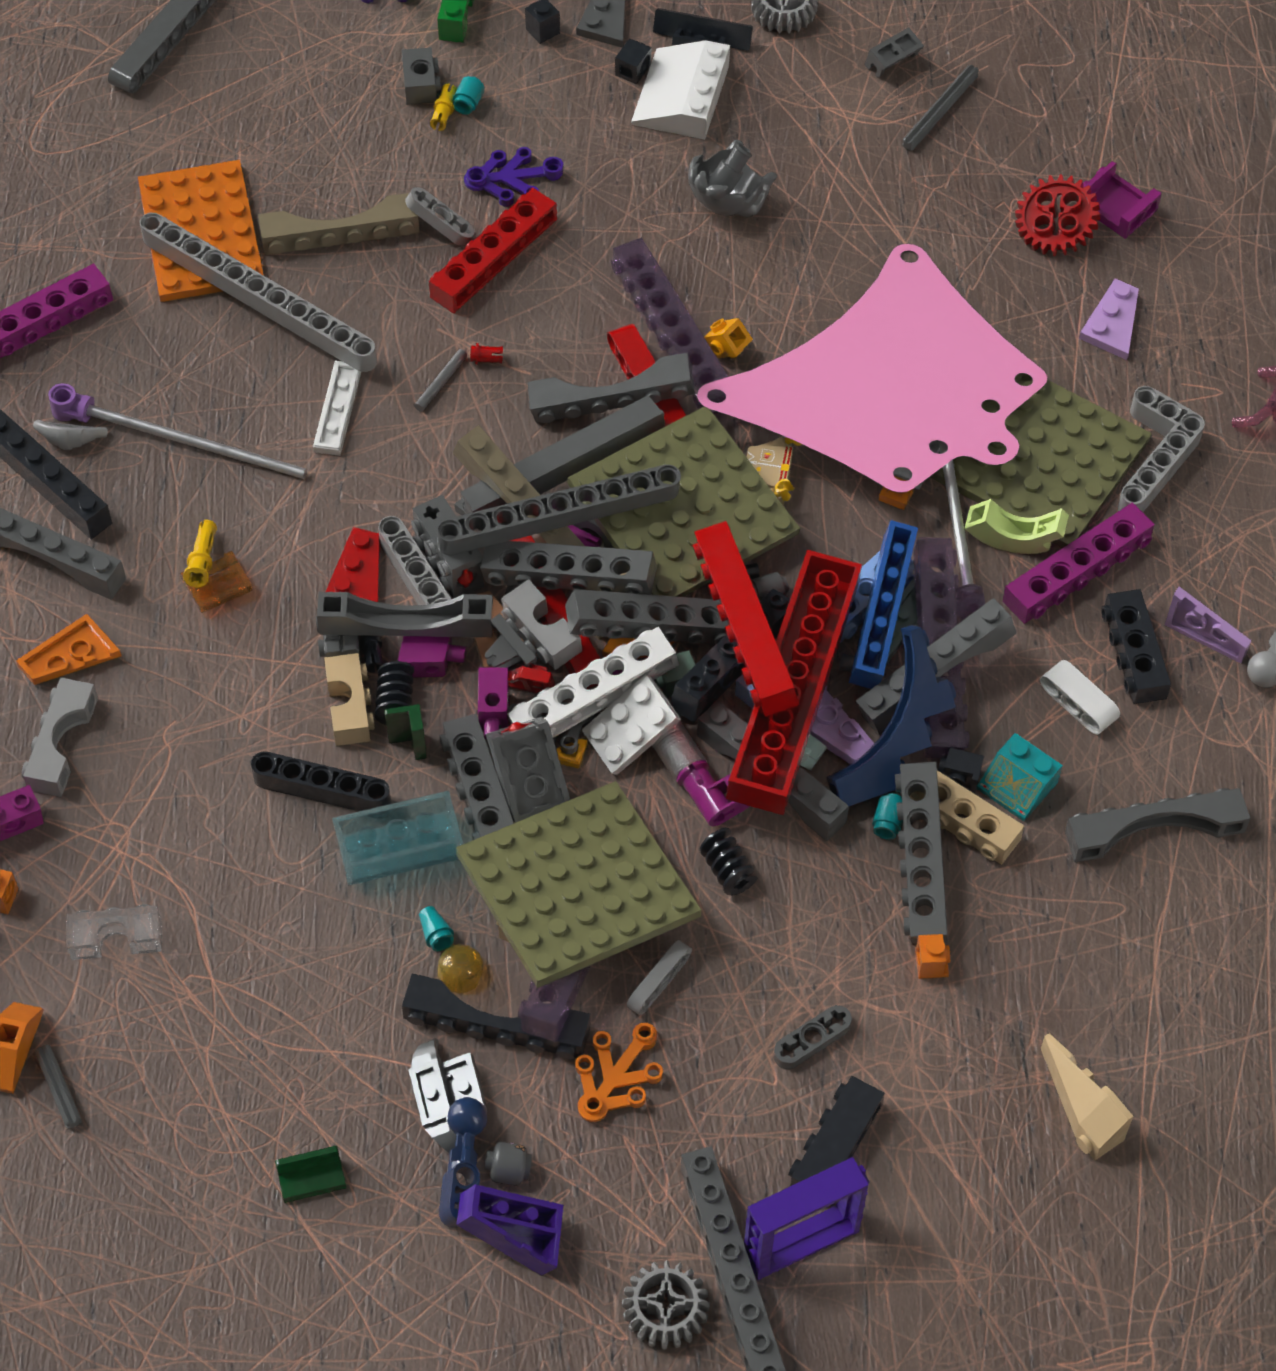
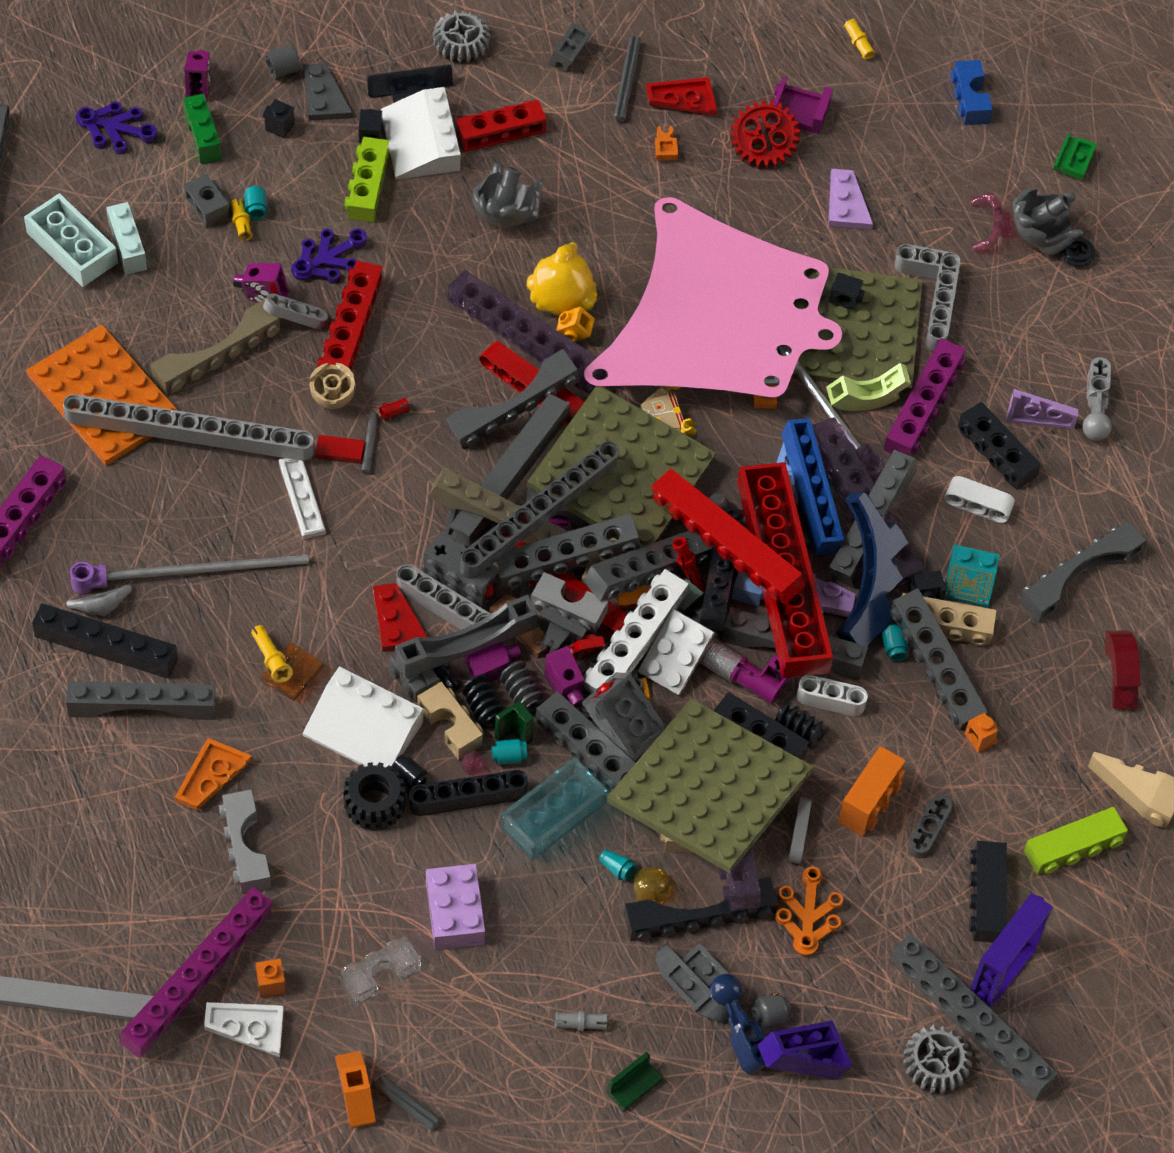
camera: 30 degrees left, 0 degrees up
(214, 725) = (374, 778): none -> black tyre
(232, 898) = (455, 906): none -> lavender piece
(257, 65) = (71, 240): none -> light aqua brick
(257, 664) = (363, 720): none -> white slope
(271, 734) = (410, 771): none -> black brick
(293, 1081) = (580, 1021): none -> light grey pin
(311, 89) = (127, 238): none -> light aqua arch
(344, 753) = (472, 763): none -> clear pink plate
(390, 758) = (509, 752): none -> teal brick
(405, 374) = (340, 449): none -> red tile
(426, 172) = (262, 280): none -> magenta torso
(429, 304) = (332, 385): none -> tan cylinder
(443, 694) = (522, 686): none -> dark grey piece
(598, 112) = (368, 179): none -> lime brick
(659, 812) = (757, 722): none -> black brick
(693, 628) = (686, 560): none -> red pin
(738, 287) = (562, 282): none -> yellow piece
(761, 968) = (872, 791): none -> orange brick
(772, 107) = (501, 125): none -> red brick
(787, 856) = (823, 687): none -> white beam
(941, 190) = (665, 145): none -> orange plate
(973, 1127) = (1075, 841): none -> lime brick
(991, 144) = (683, 95): none -> red wing
(1050, 412) = (846, 291): none -> black brick
(1140, 954) = (1125, 664): none -> dark red arch
(1227, 154) = (859, 39): none -> yellow pin

